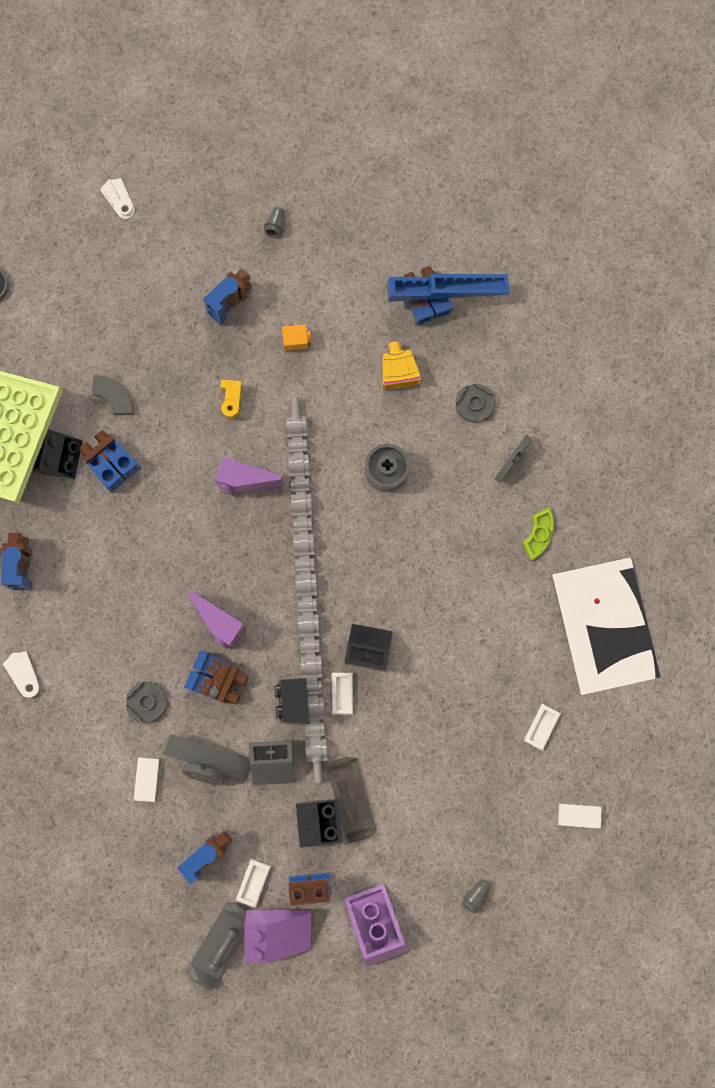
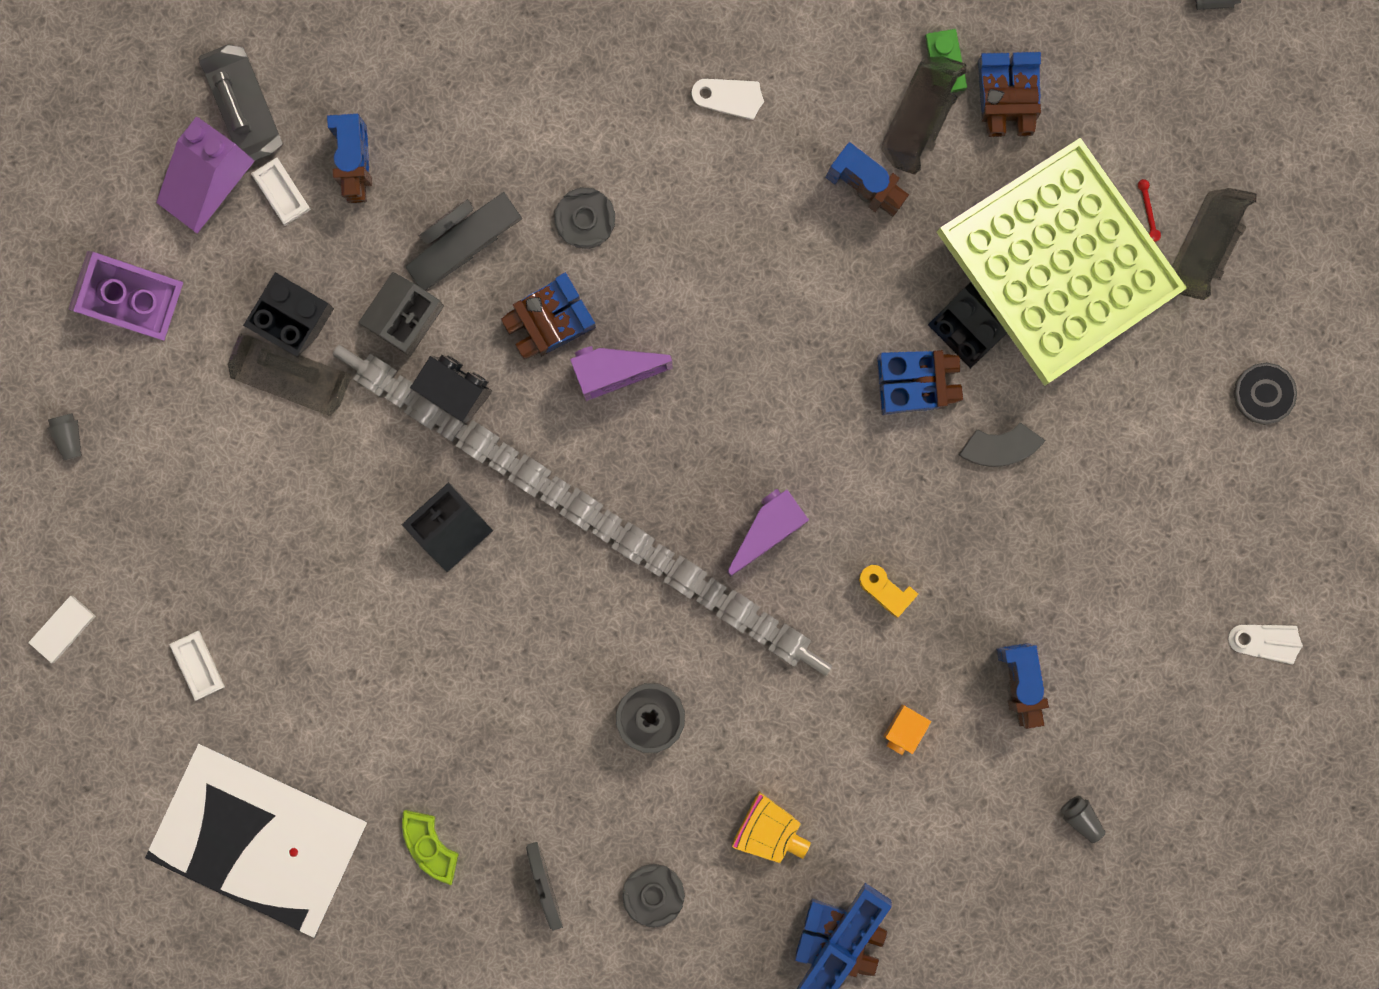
camera: 130 degrees right, 5 degrees up
(146, 779) = (493, 153): white tile -> none
(309, 891) = (215, 245): reddish brown hips -> none
(342, 693) = (419, 456): white tile -> none

